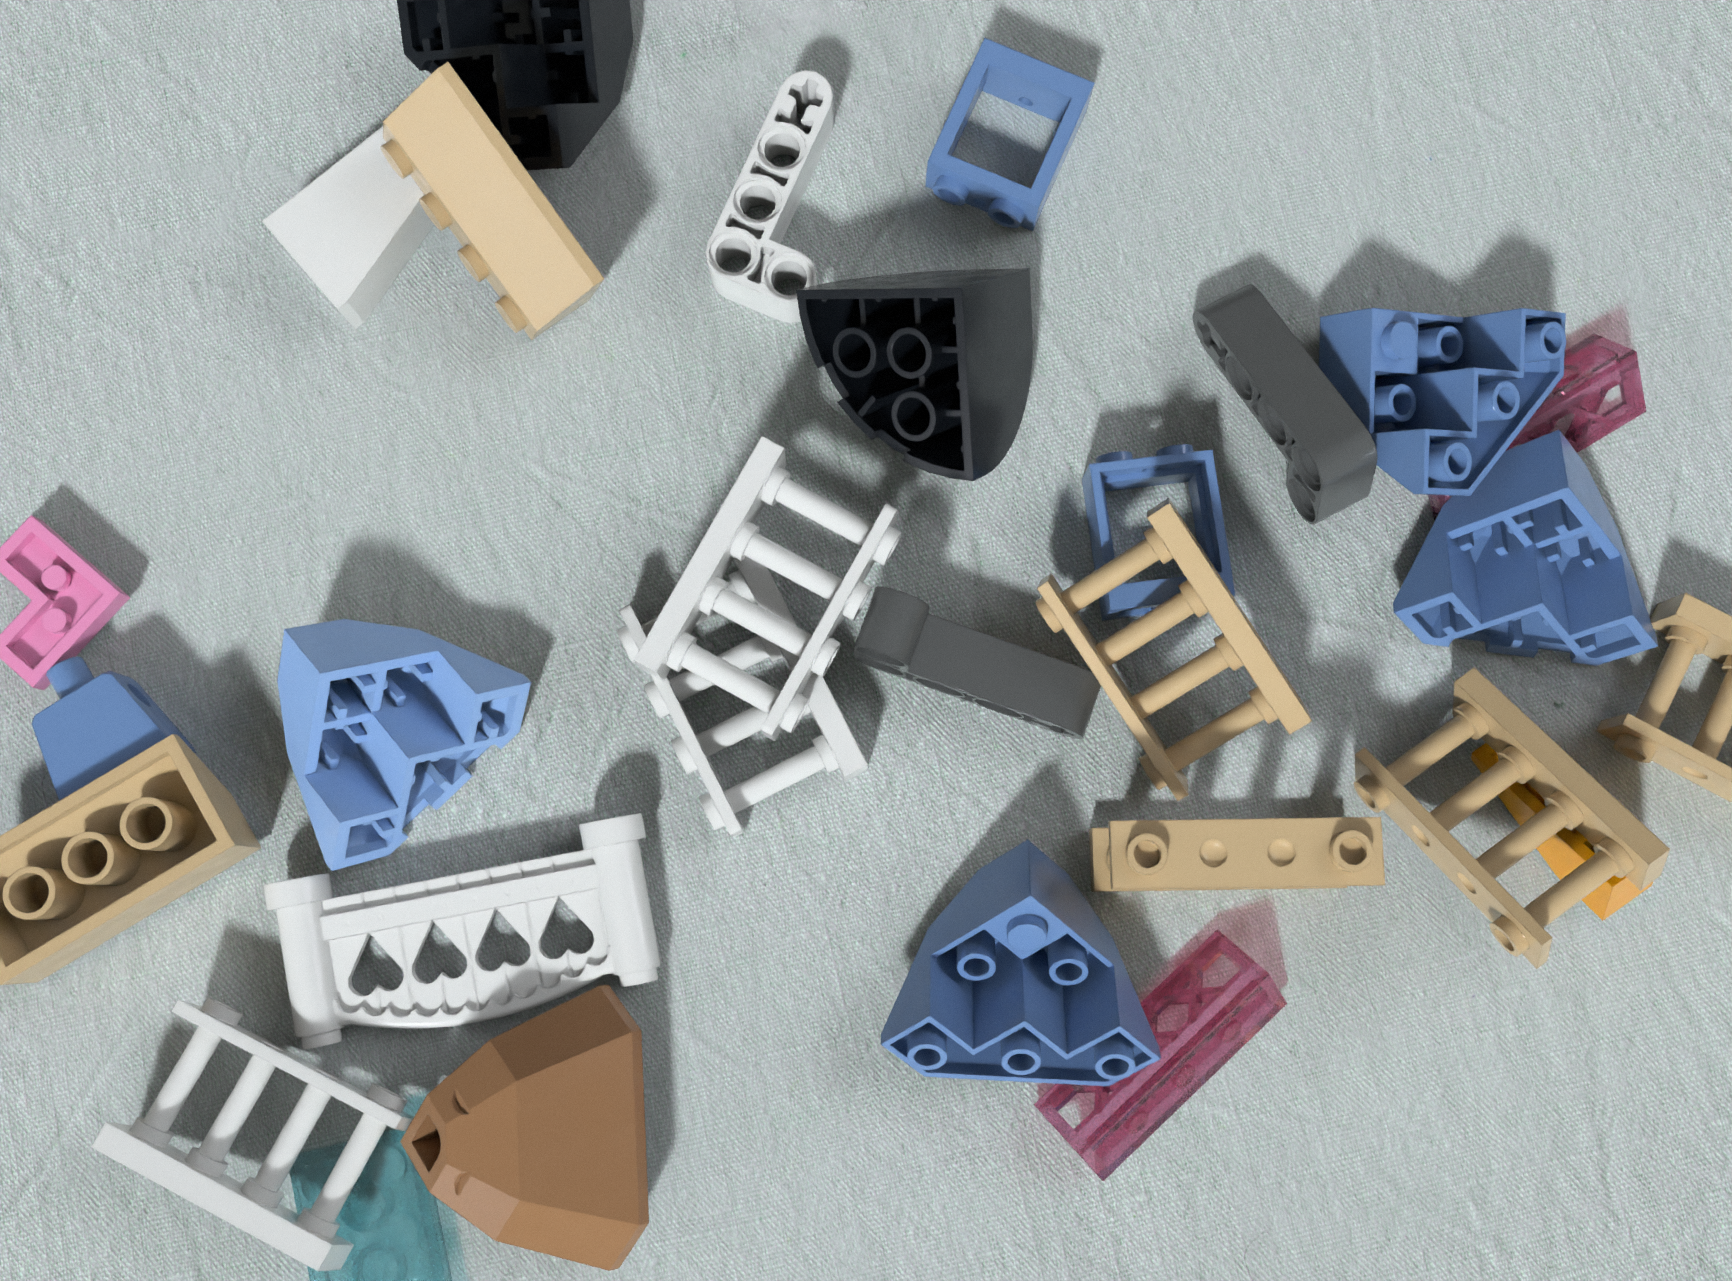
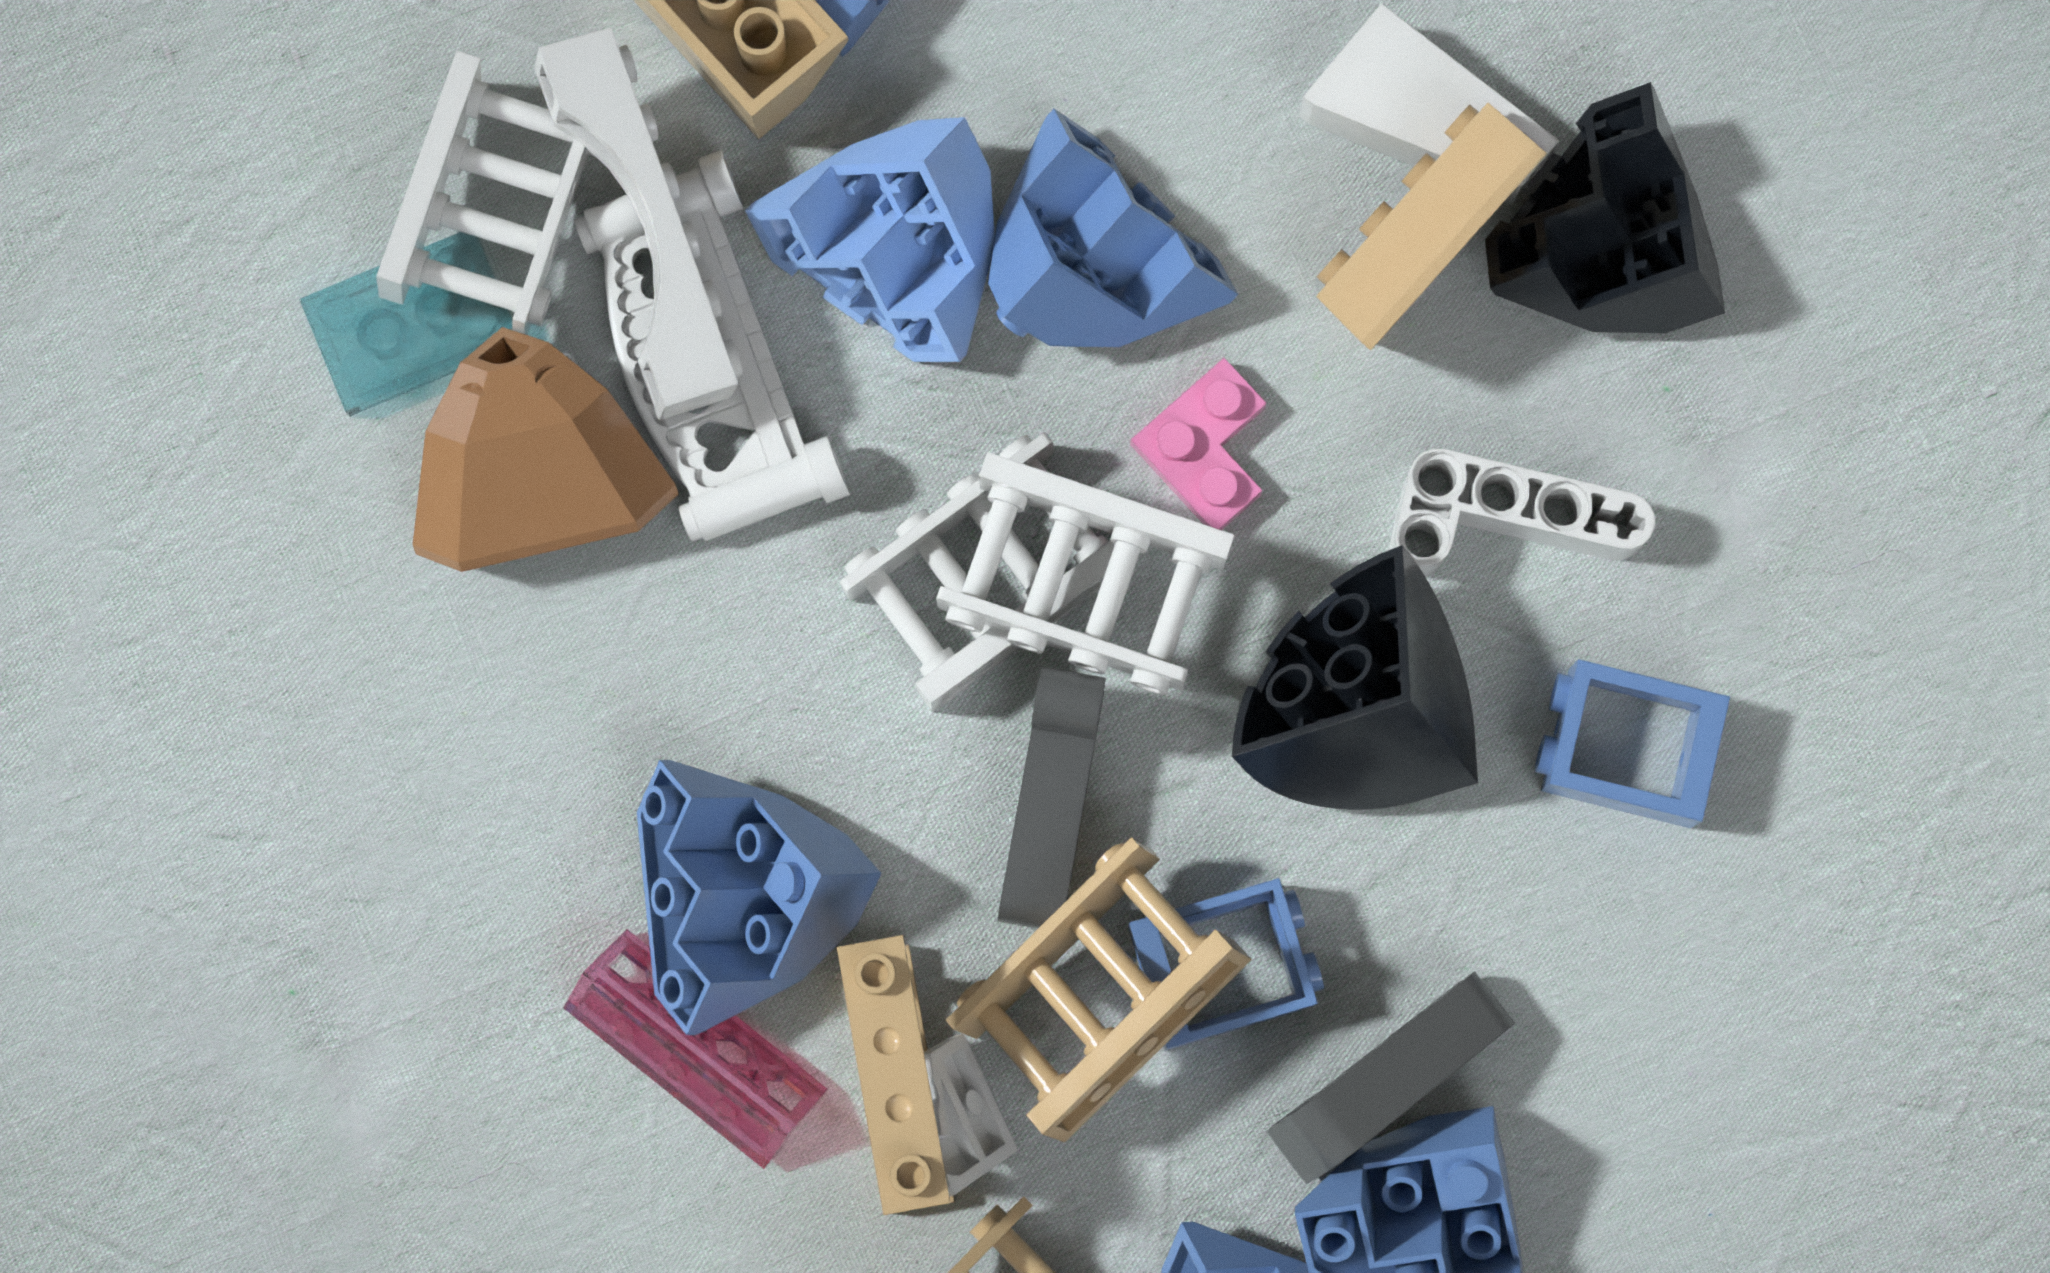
camera: 85 degrees right, 0 degrees up
(180, 1006) = (594, 102): none -> white arch
(449, 539) = (1088, 255): none -> medium blue brick
(657, 485) = (1188, 441): none -> bright pink plate
(1271, 791) = (966, 1114): none -> white wing

